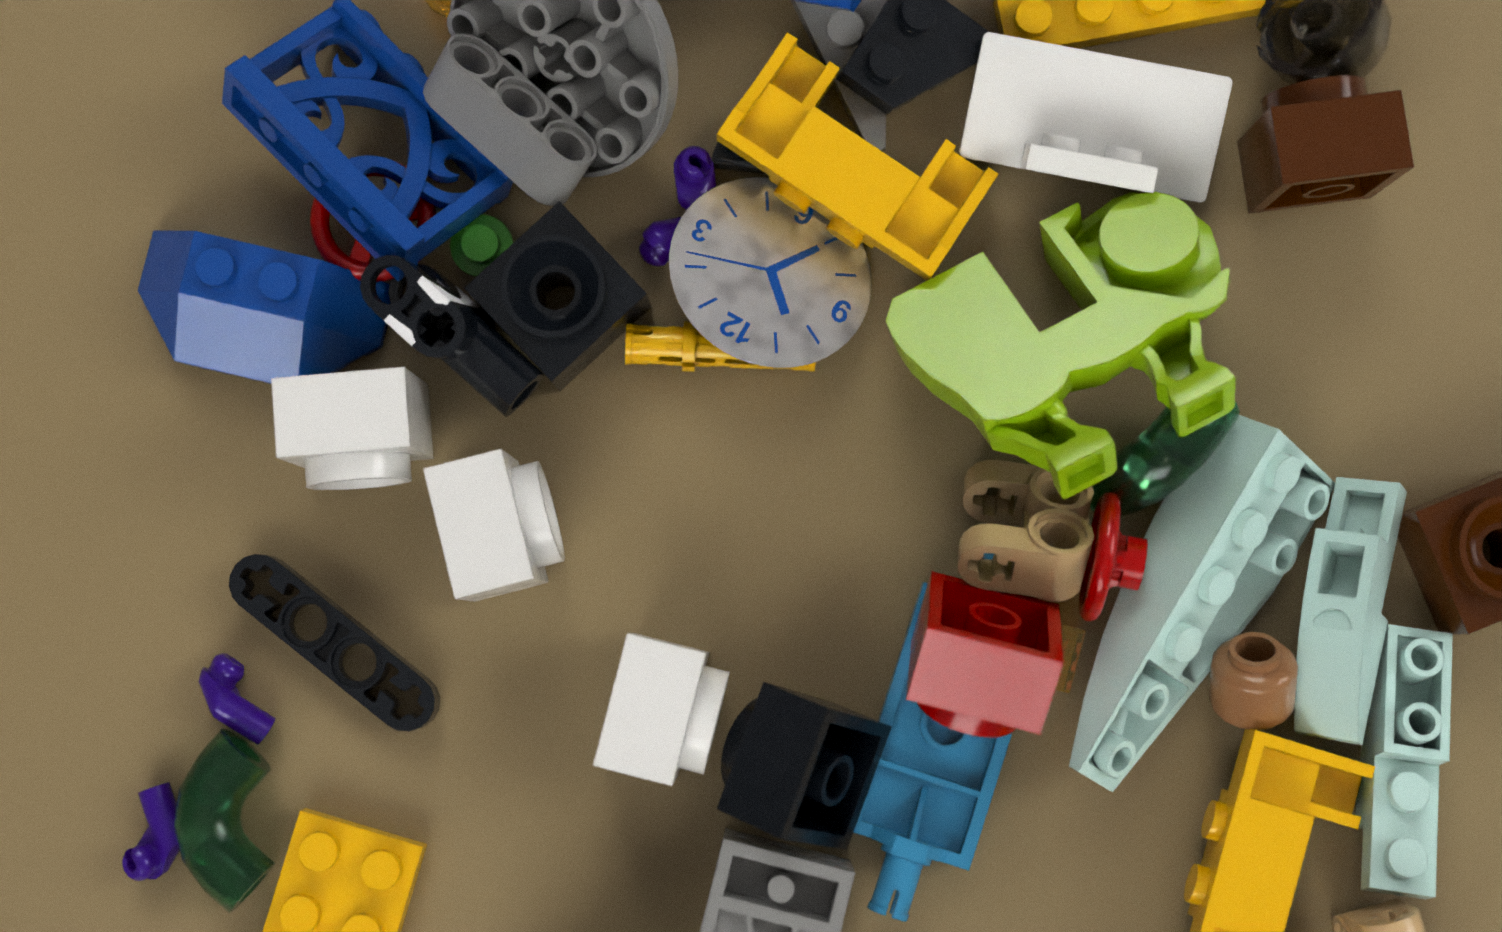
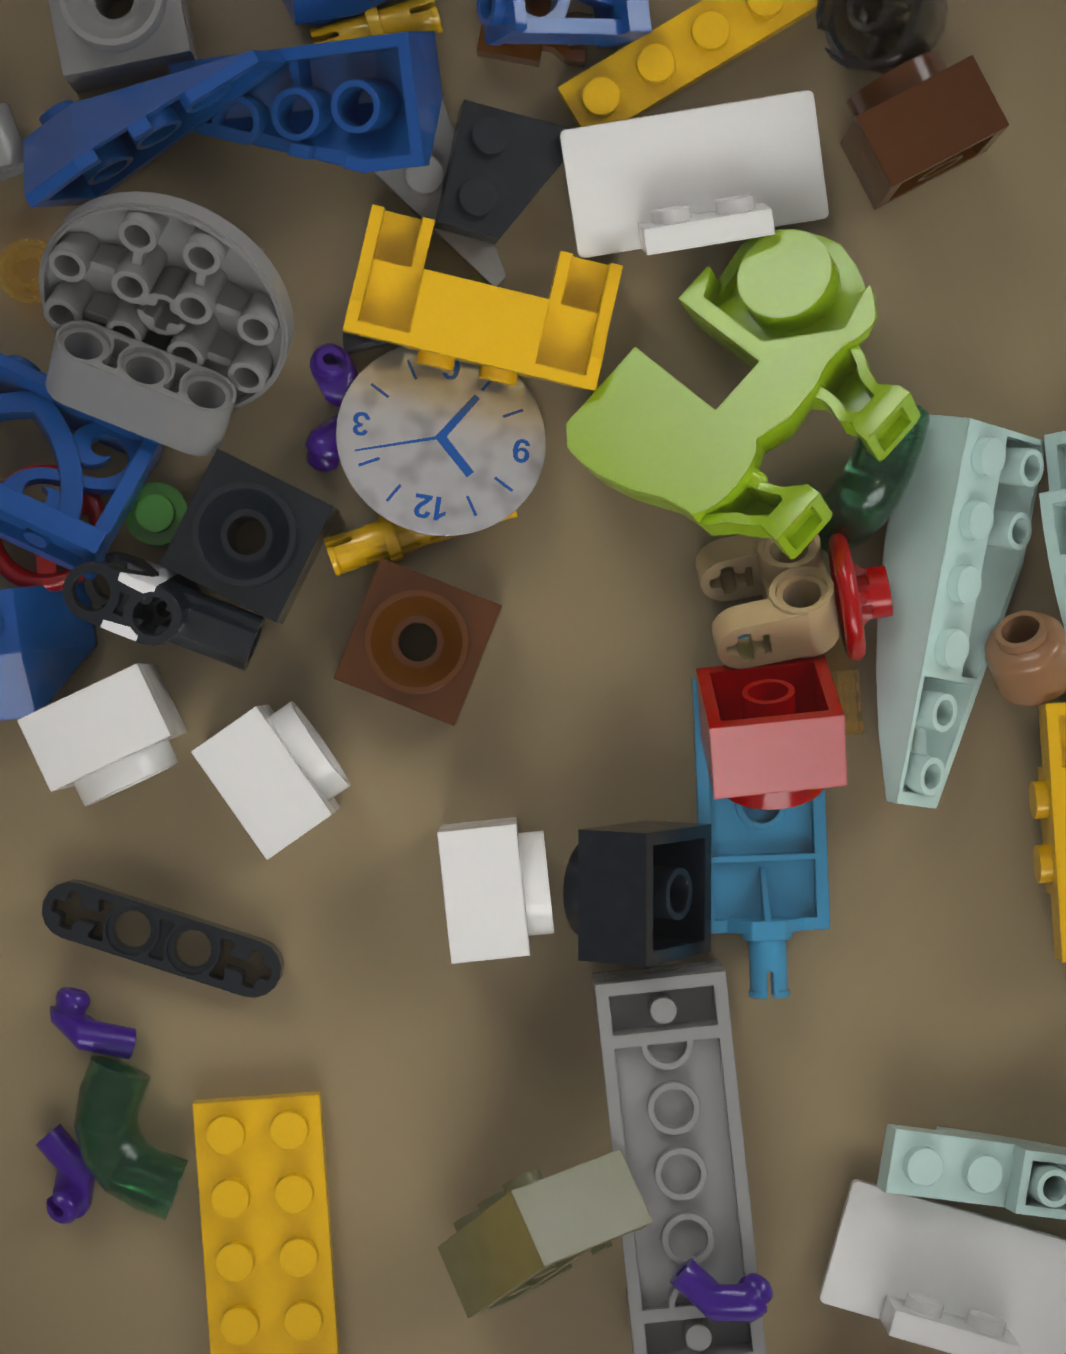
camera: 20 degrees left, 5 degrees up
(668, 409) = (375, 651): none -> reddish brown piece

